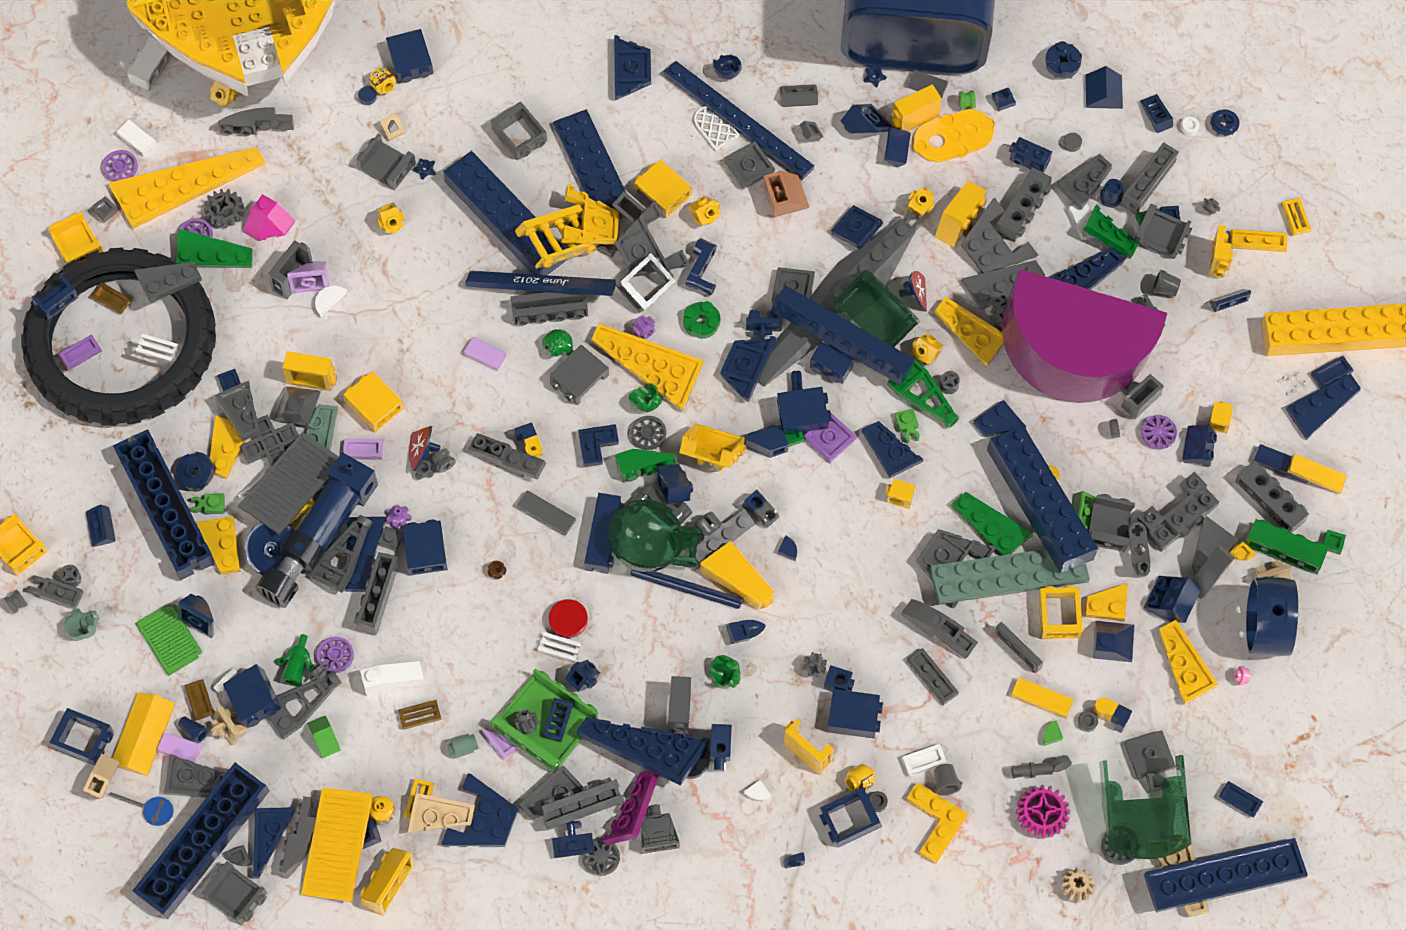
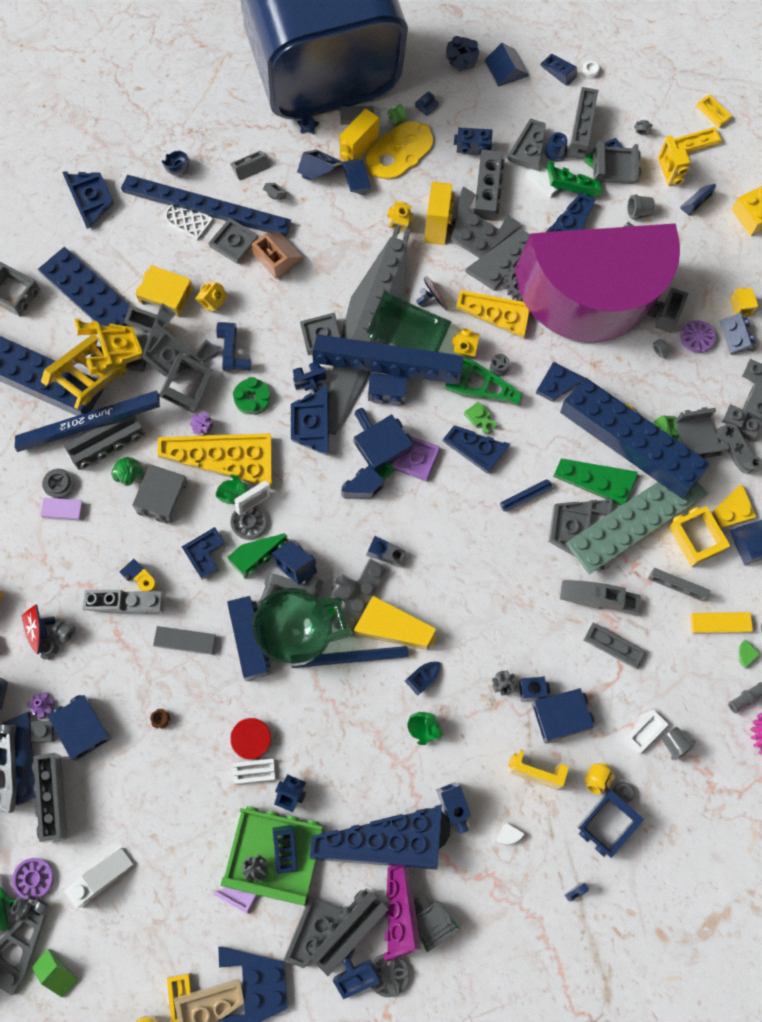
camera: 25 degrees left, 5 degrees up
(418, 707) = (128, 917): pearl gold tile -> none
(463, 745) = (201, 920): sand green brick -> none
(493, 321) = (58, 475): none -> dark grey gear
(661, 411) = (252, 497): none -> white tile
(679, 705) = (398, 784): dark grey window -> none
(712, 446) = (315, 511): yellow piece -> none
(788, 548) = (427, 579): dark blue tile -> none
(857, 227) = (353, 259): dark blue plate -> none
(900, 493) = (505, 484): yellow brick -> none
(916, 512) = (526, 495): none -> dark blue axle
(949, 818) = (699, 787): yellow plate -> none
(1072, 142) = (501, 118): dark grey tile -> none
(1231, 119) = (620, 51): dark blue gear -> none

